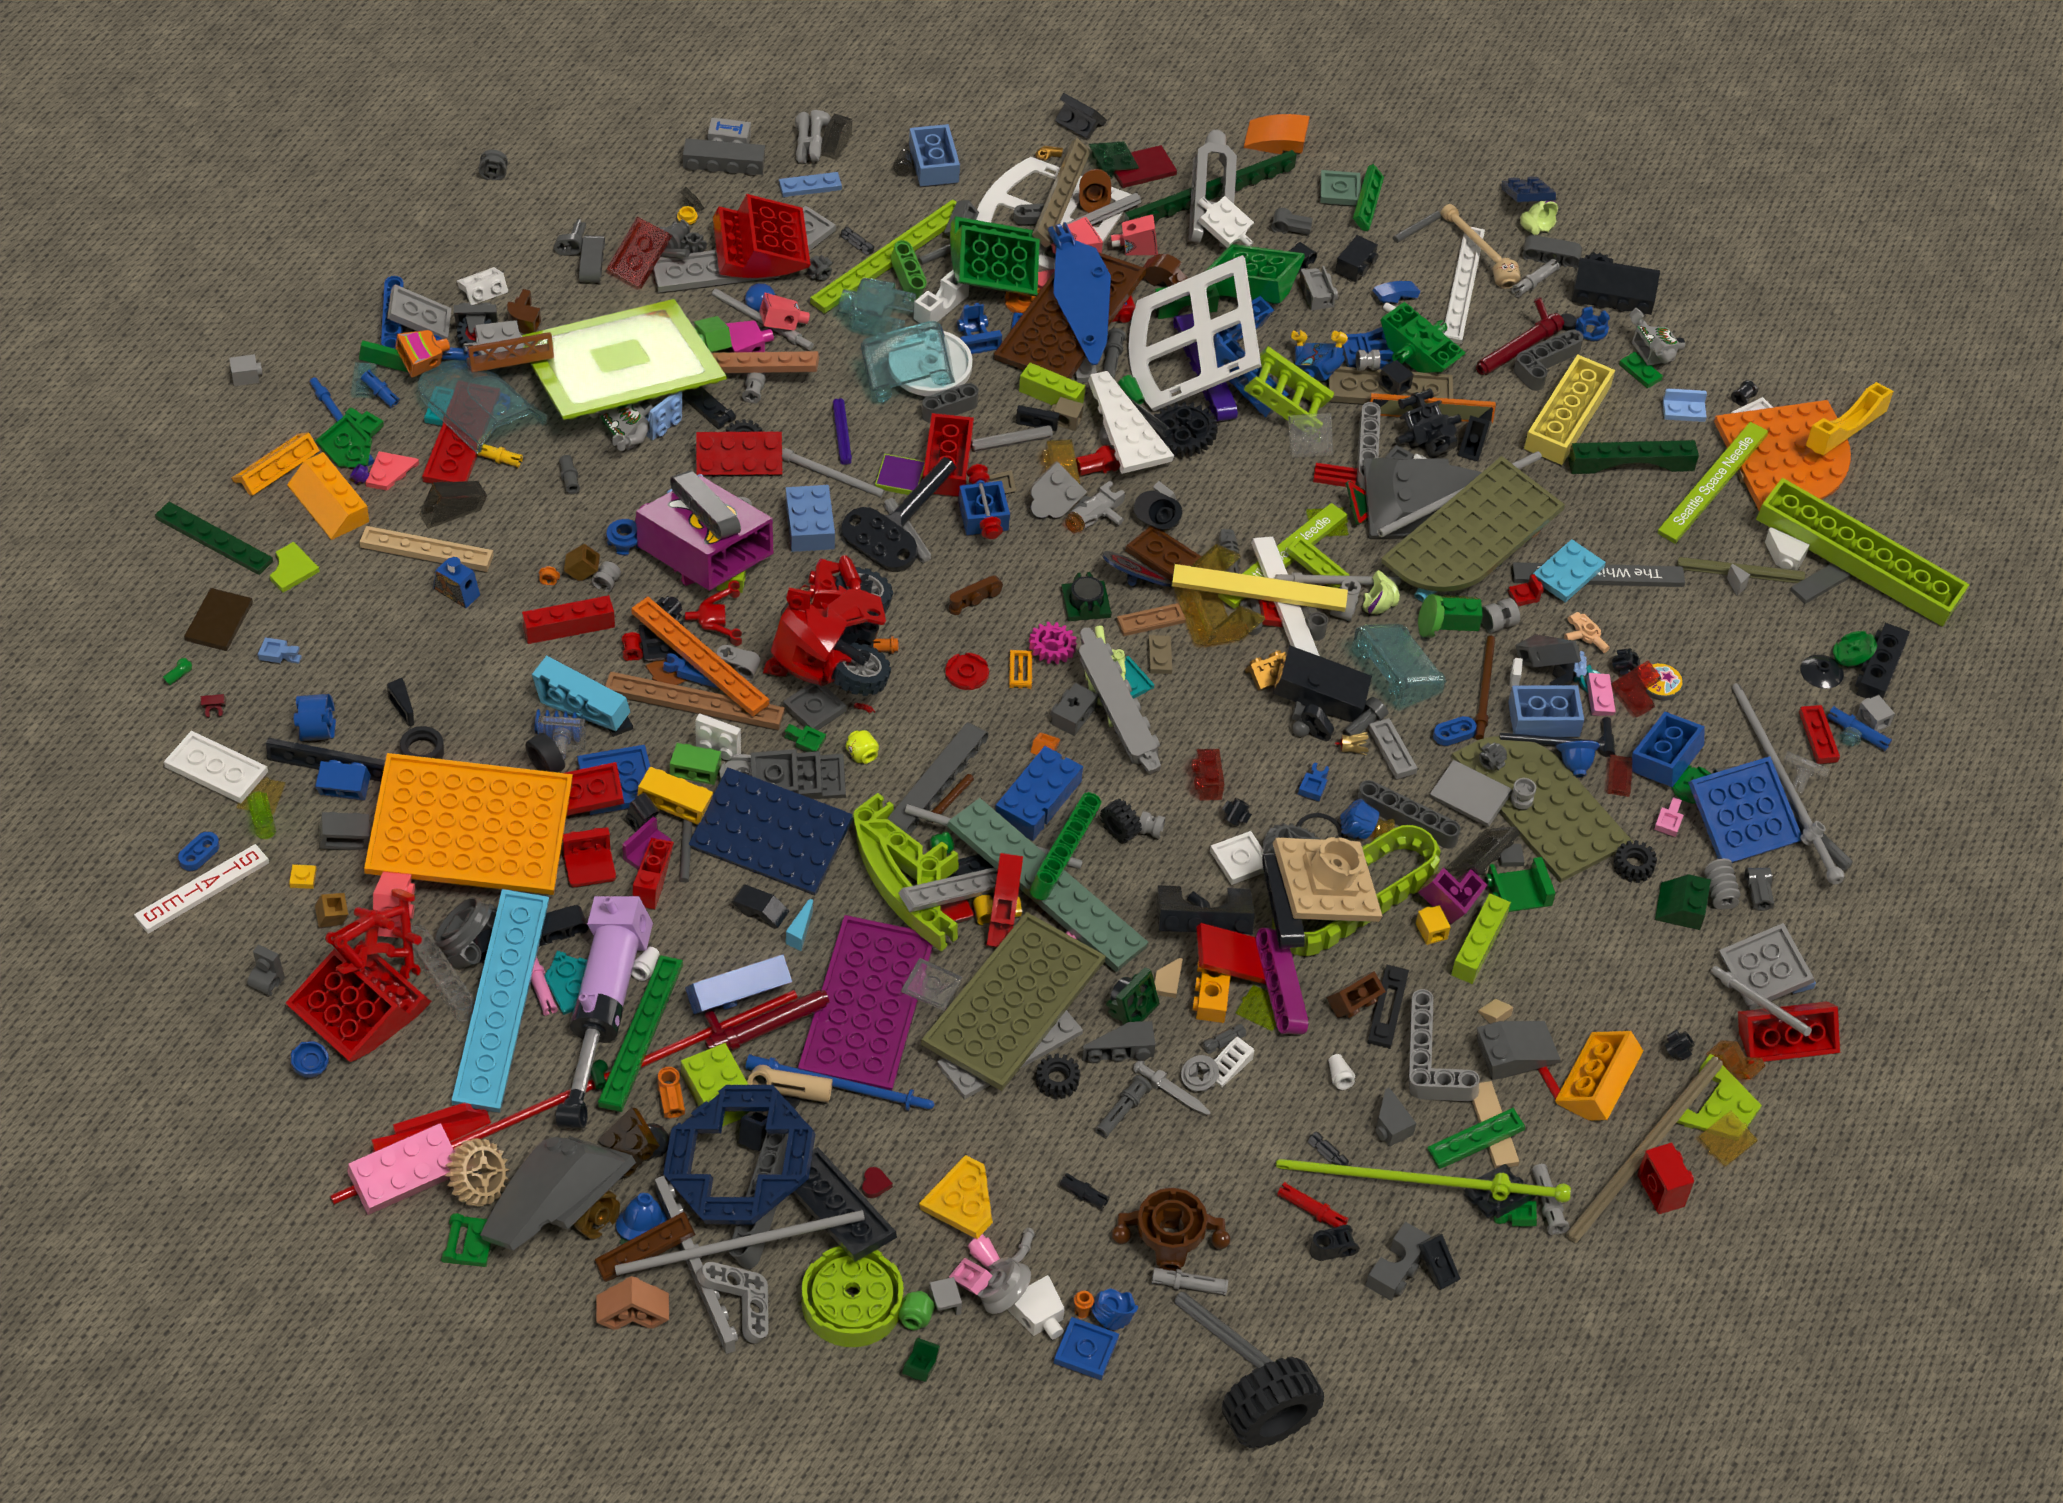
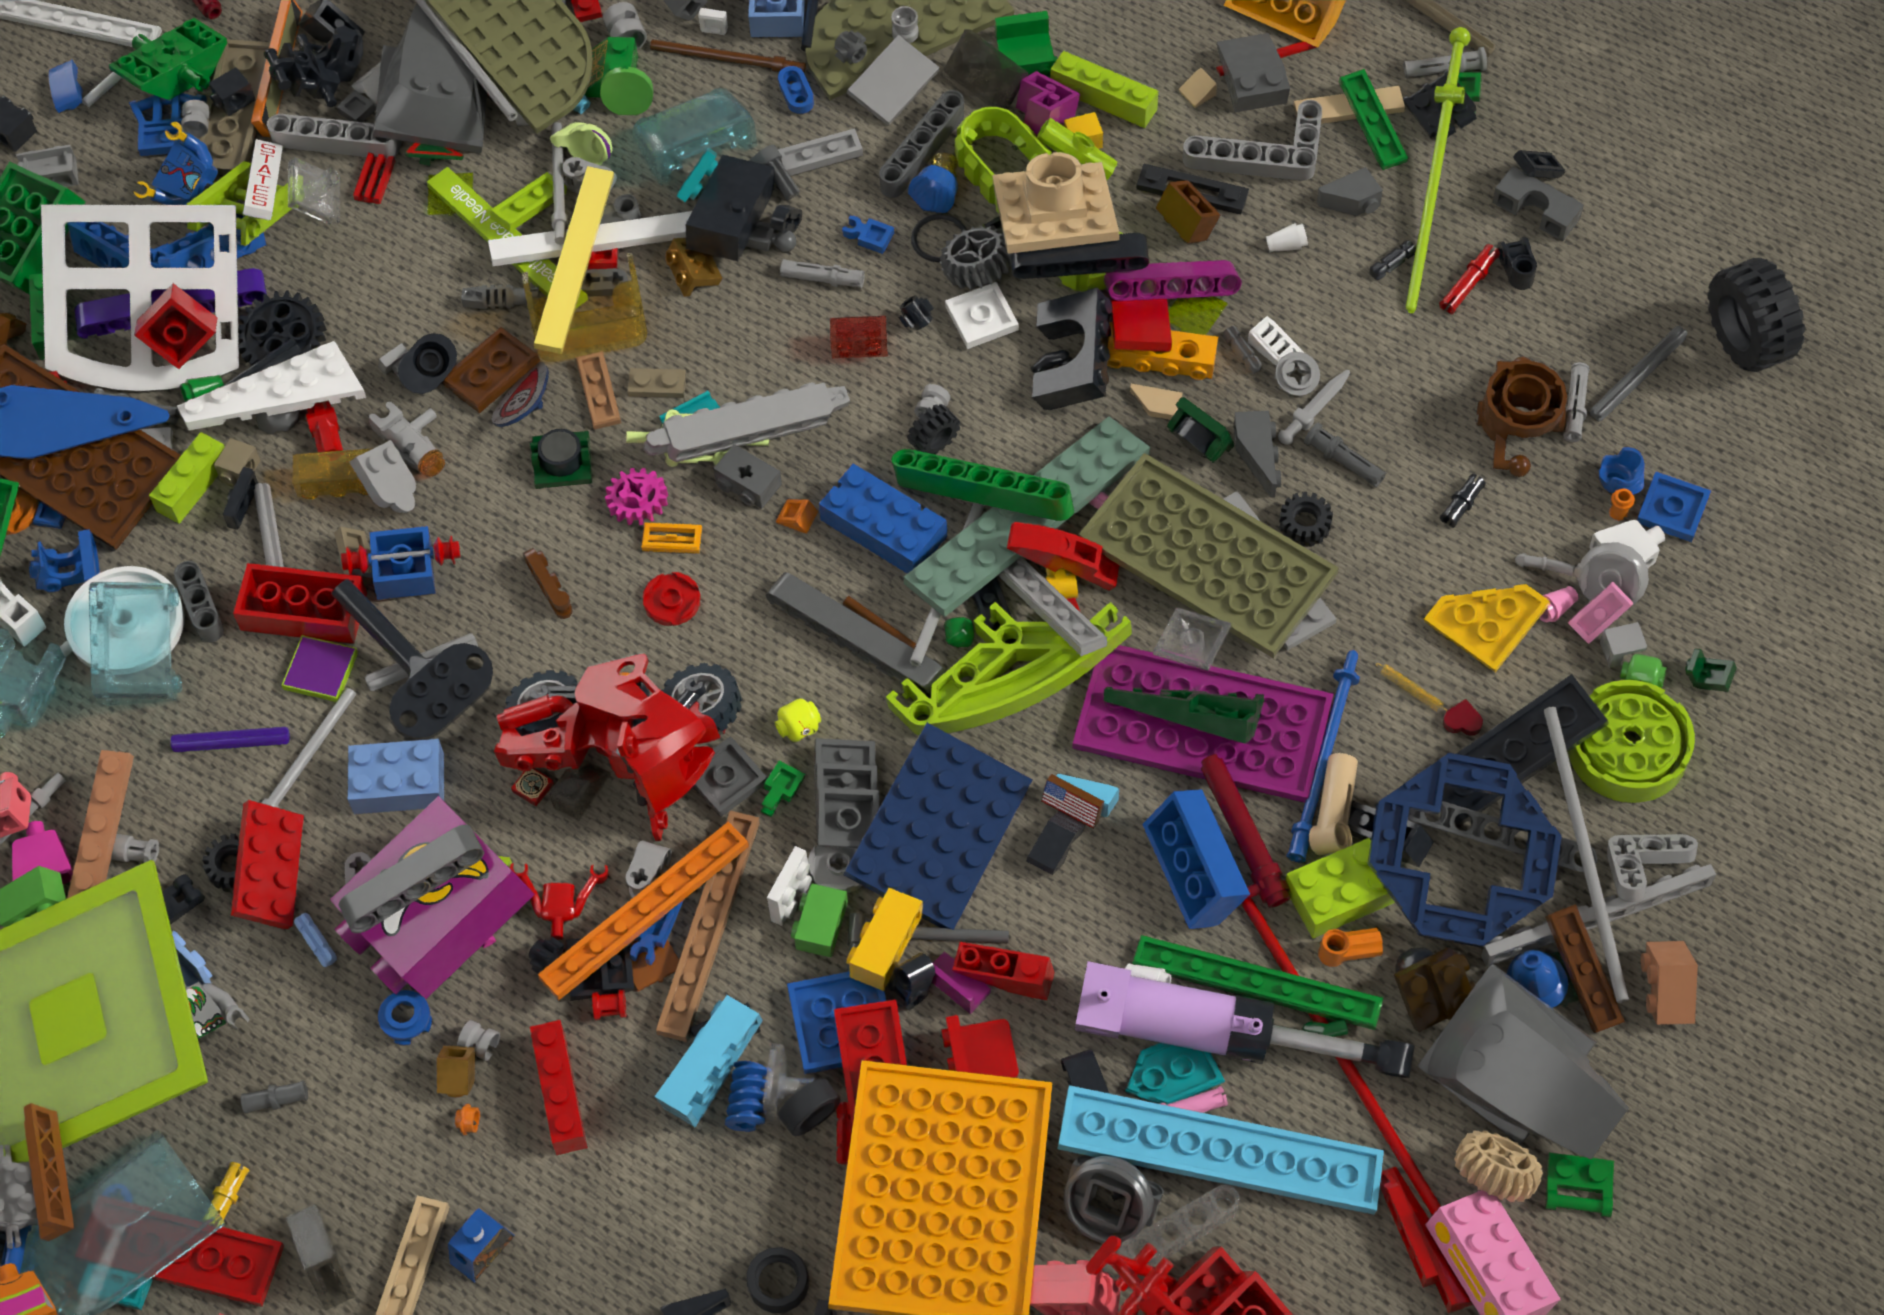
camera: 80 degrees left, 10 degrees up
(792, 912) = (1072, 801): none -> tile
(867, 1003) = (1212, 713): none -> dark green wedge
(903, 1143) = (1411, 684): none -> yellow piece
(1167, 357) = (175, 326): none -> red brick
(1274, 737) = (828, 274): none -> light grey pin
(1307, 396) = (263, 180): none -> white tile
(1348, 657) = (692, 184): none -> teal plate
(1351, 743) = (810, 195): pearl gold piece -> none
(1403, 925) = (1075, 144): none -> lime piece

